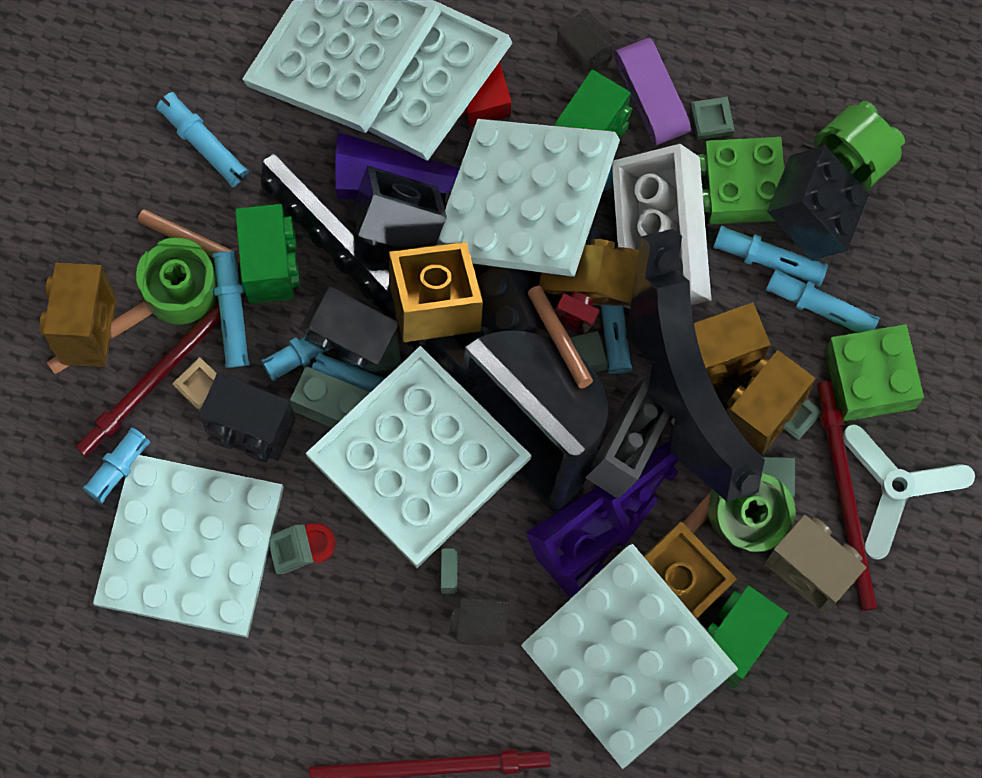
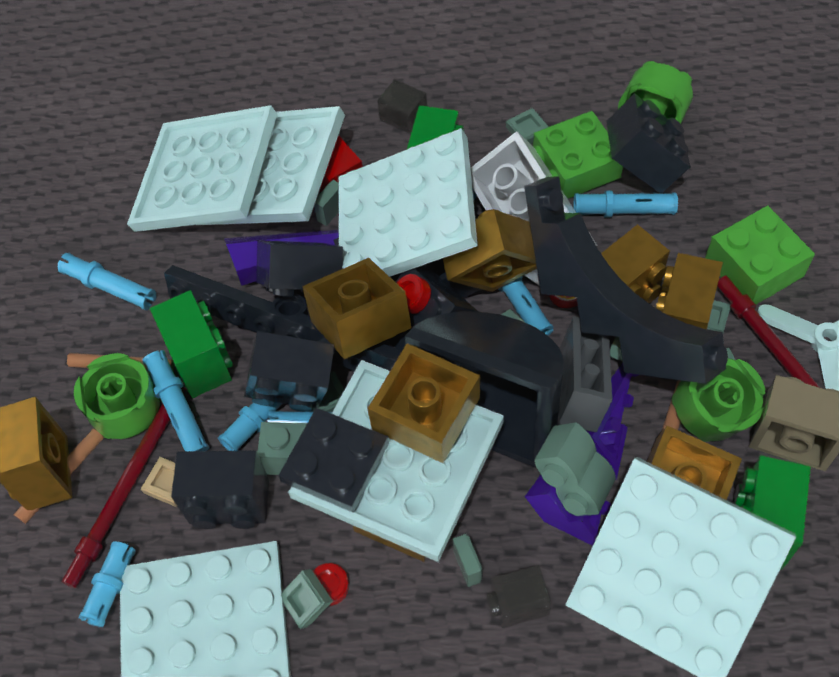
camera: 15 degrees left, 15 degrees down
(357, 438) = (334, 459): none -> black plate
(458, 420) = (424, 402): none -> pearl gold brick
(459, 135) = (327, 203): none -> sand green tile
(496, 295) = (416, 291): none -> red tile
(560, 337) = (486, 305): nougat bar -> none
(576, 312) = (489, 285): dark red plate -> none
(578, 530) = (575, 469): none -> sand green brick
(653, 90) = (481, 125): medium lavender beam -> none
(821, 303) = (672, 222): medium azure pin -> none

